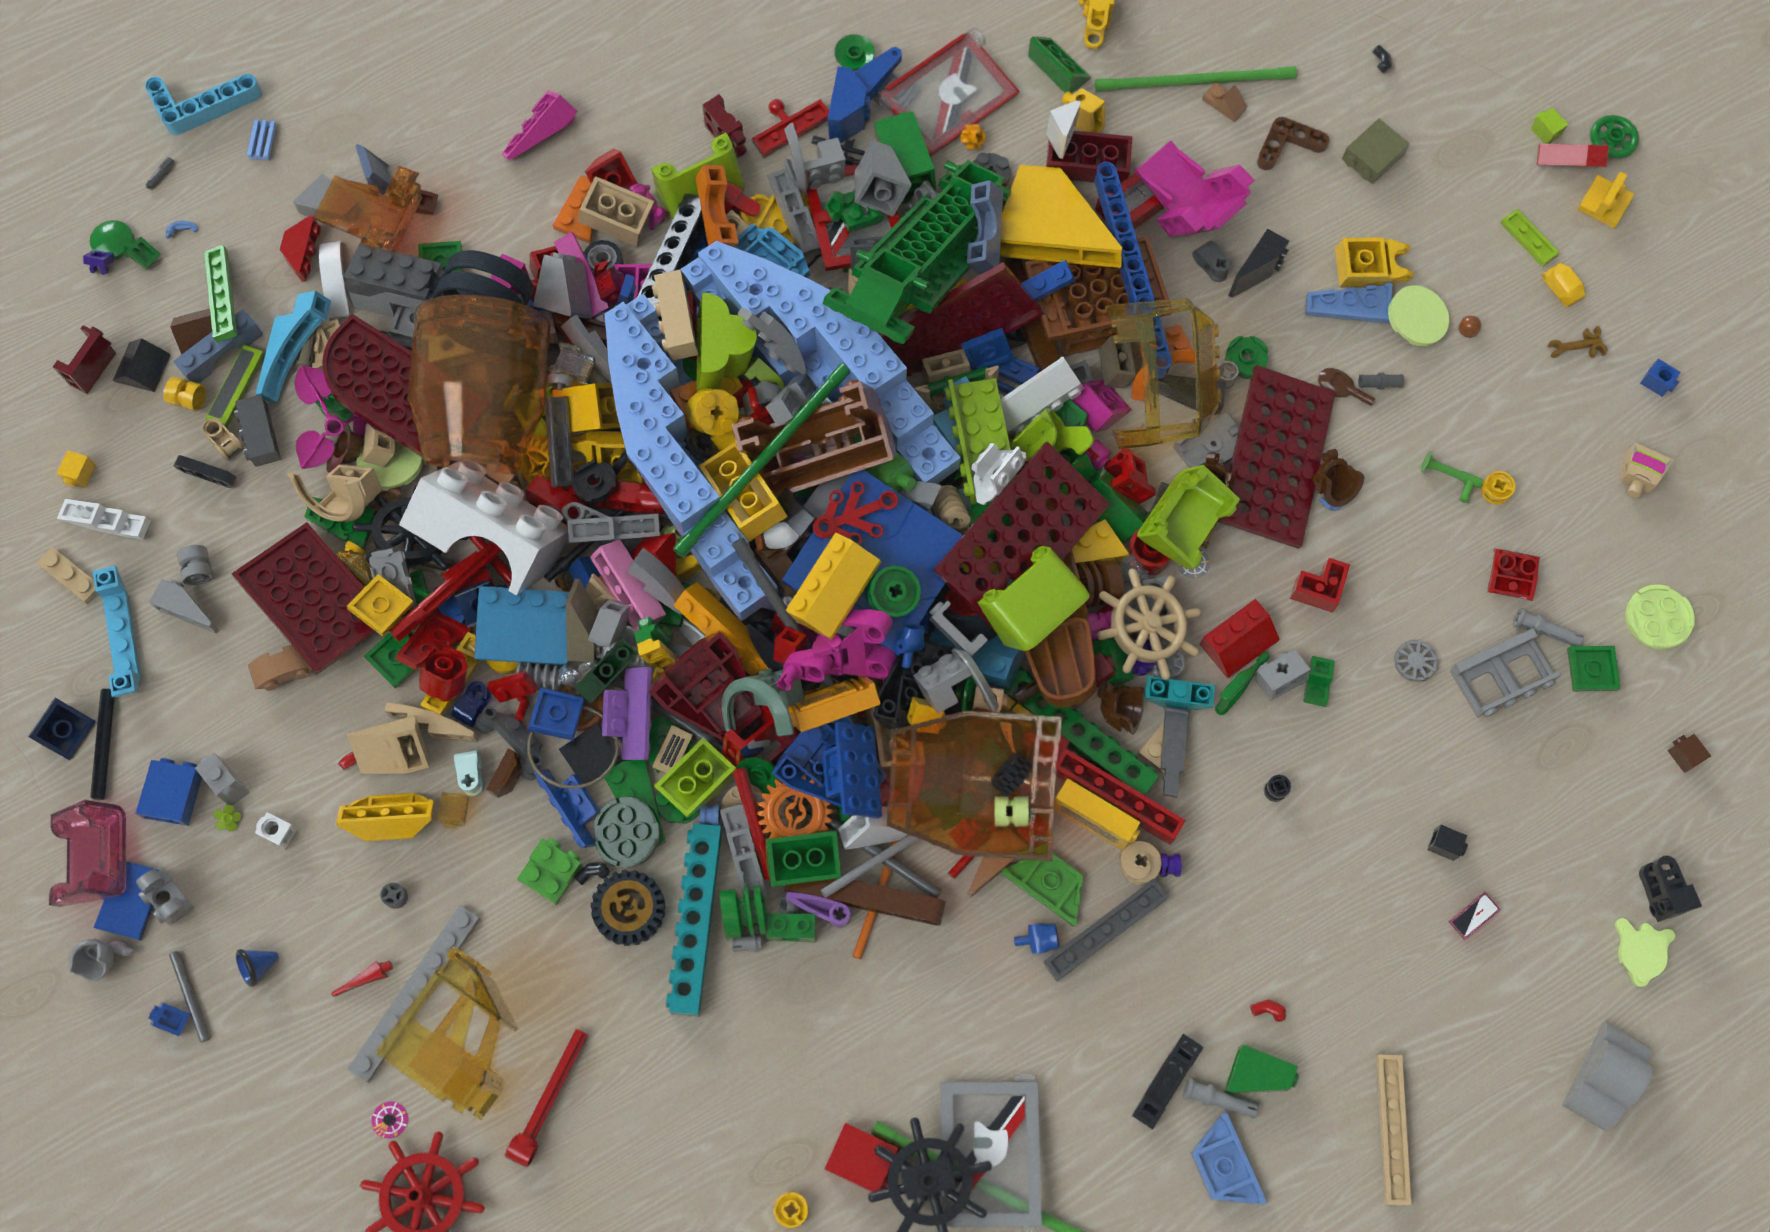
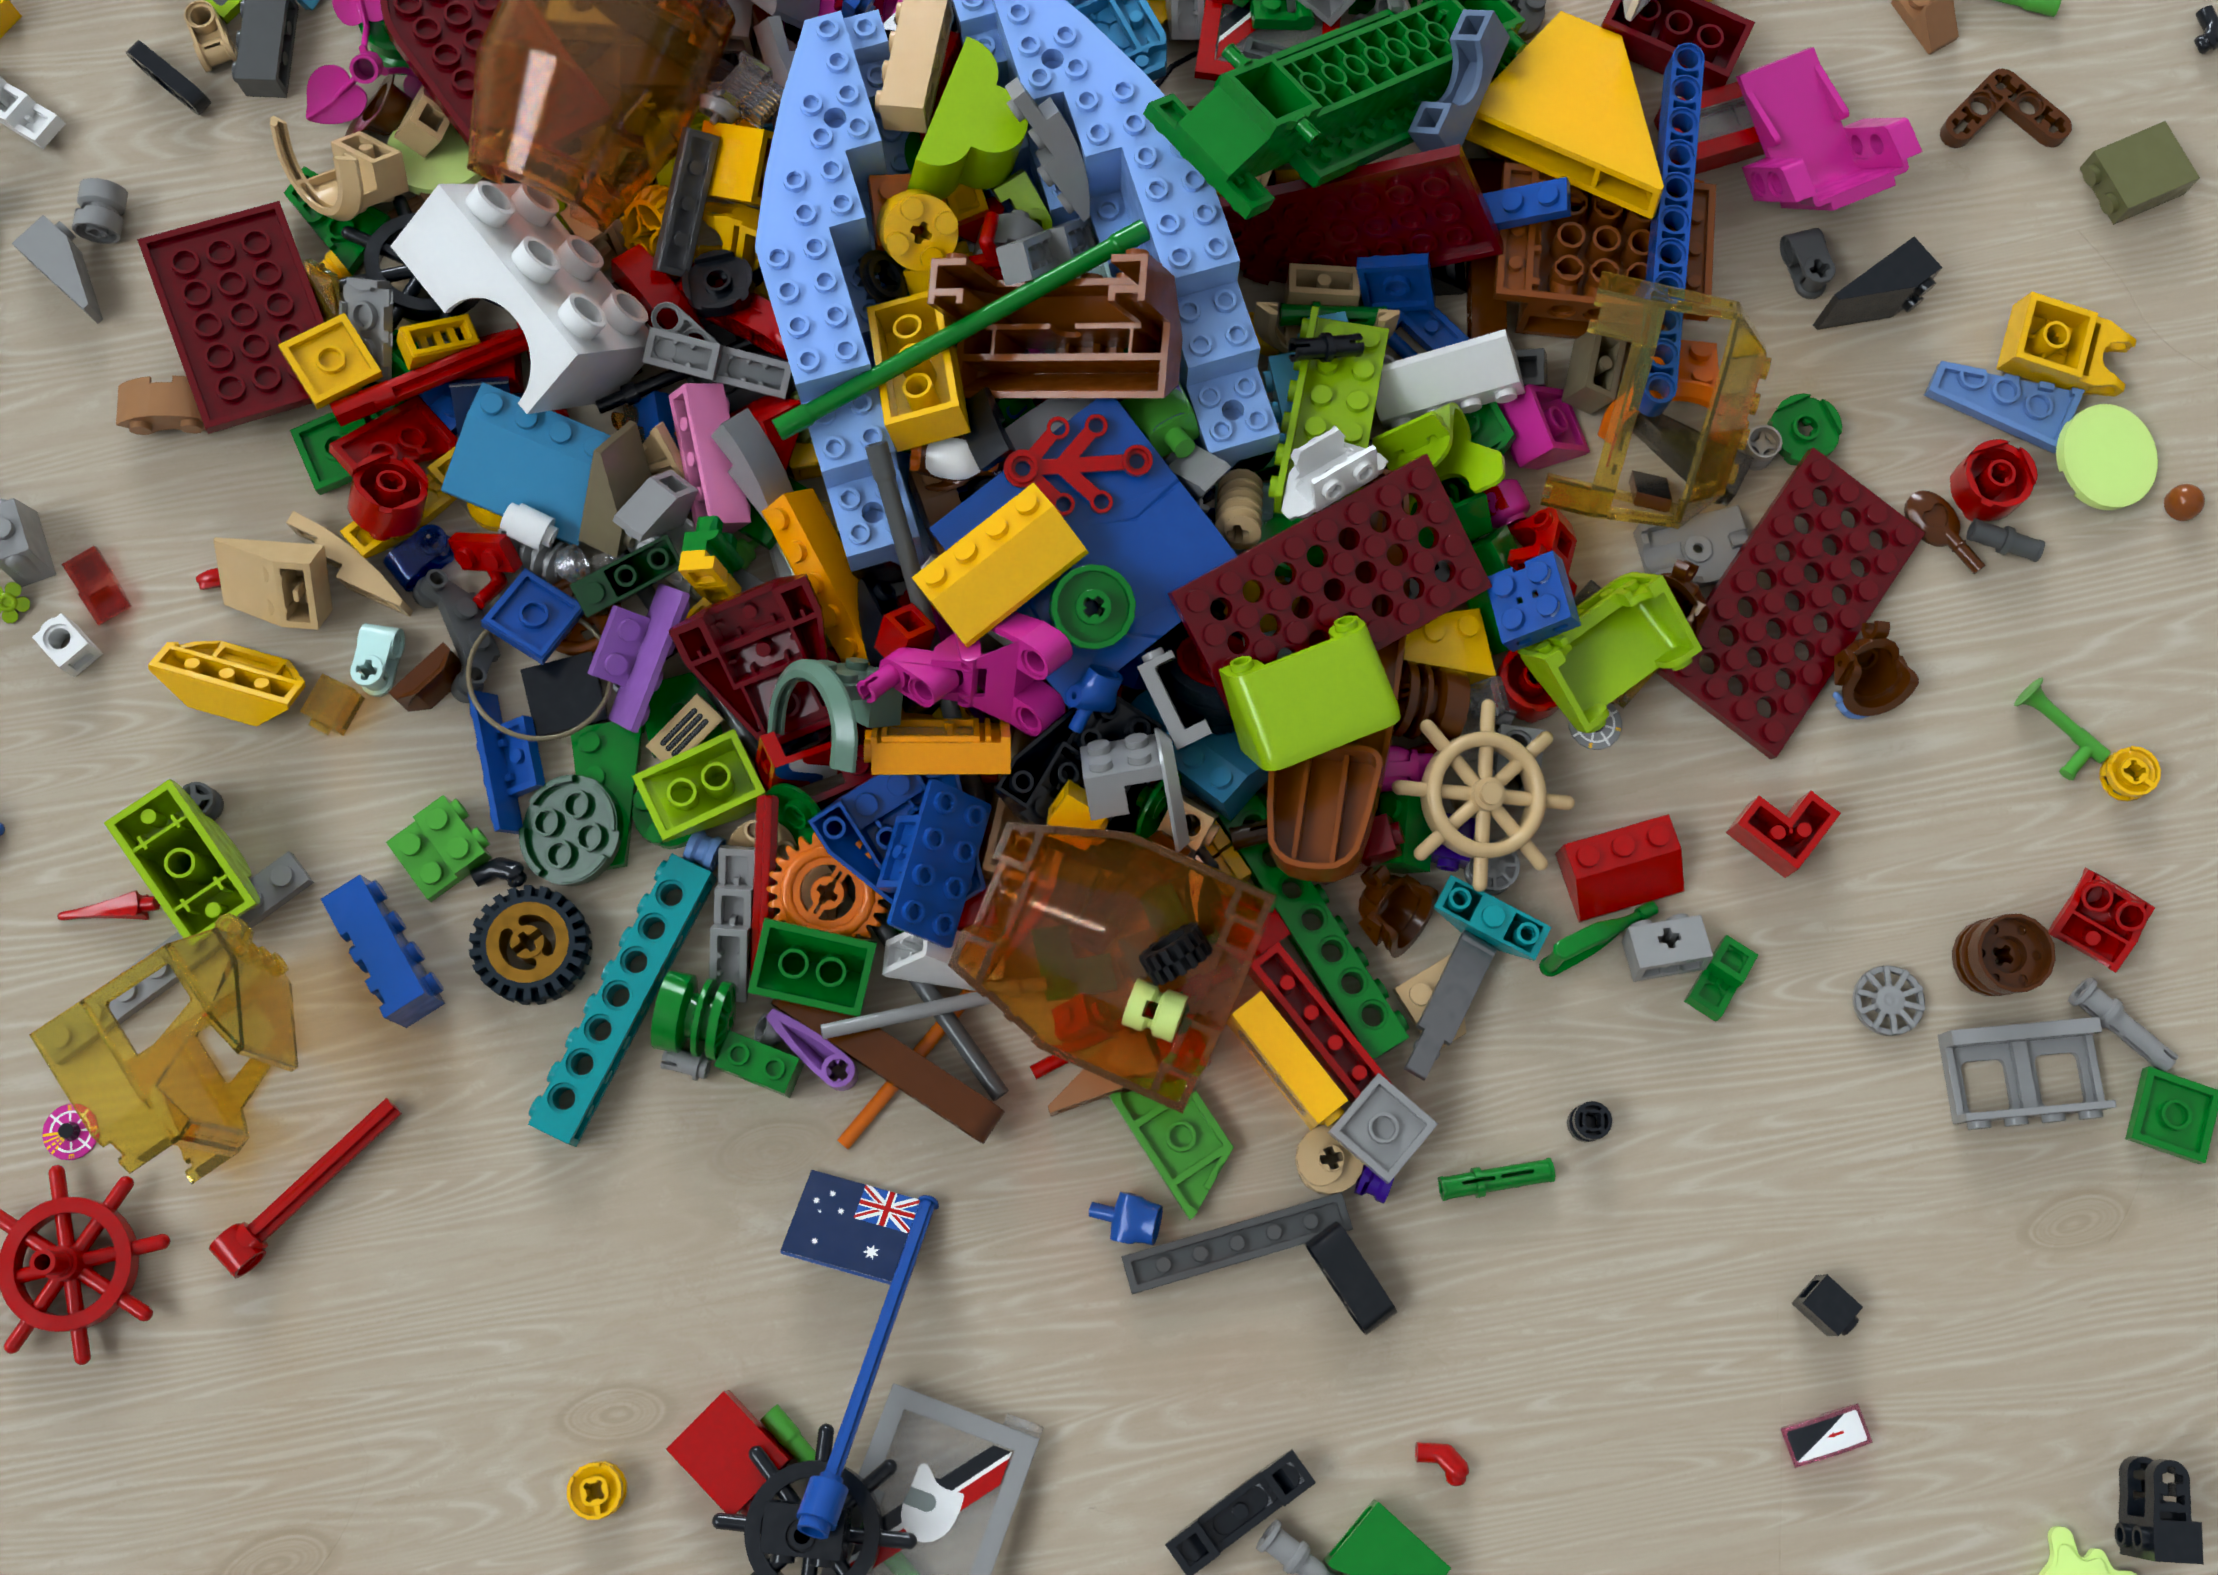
camera: 20 degrees right, 5 degrees up
(279, 789) = (97, 585): none -> clear red slope
(405, 931) = (184, 859): none -> lime brick
(424, 578) = (420, 332): none -> yellow slope
(536, 661) = (529, 526): none -> white brick
(540, 942) = (384, 951): none -> blue wedge
(893, 1003) = (871, 1237): none -> flag
(965, 400) = (1325, 347): none -> black pin
(1142, 512) = (1539, 615): none -> blue piece
(1165, 831) = (1383, 1128): none -> light grey plate
(1175, 420) = (1650, 491): none -> tile
(1178, 924) = (1351, 1277): none -> black beam
(1229, 844) = (1478, 1184): none -> green pin
(1361, 350) = (1993, 480): none -> red brick
(1469, 602) = (2020, 946): none -> reddish brown wheel

